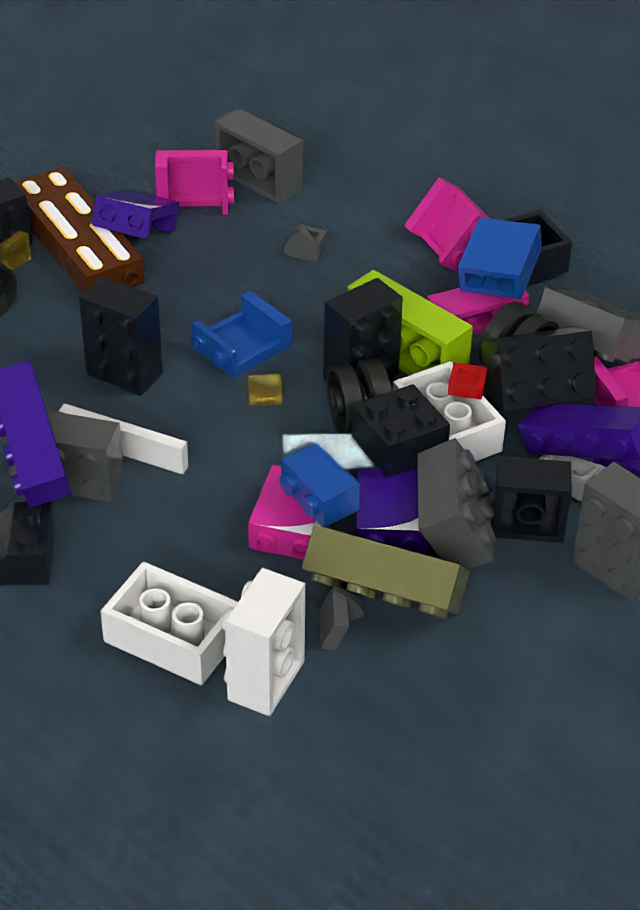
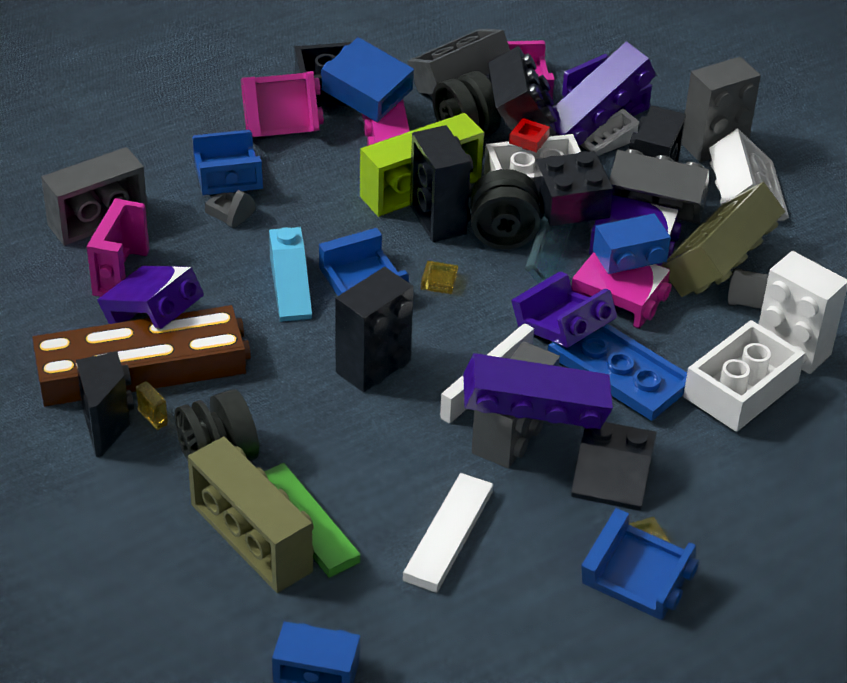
camera: 75 degrees left, 0 degrees up
(171, 528) = (636, 373): none -> blue plate
(217, 290) = (290, 274): none -> medium azure slope
(224, 473) = (562, 313): none -> dark purple panel
(358, 224) = (227, 162): none -> blue panel
(540, 598) = (742, 166): none -> white slope

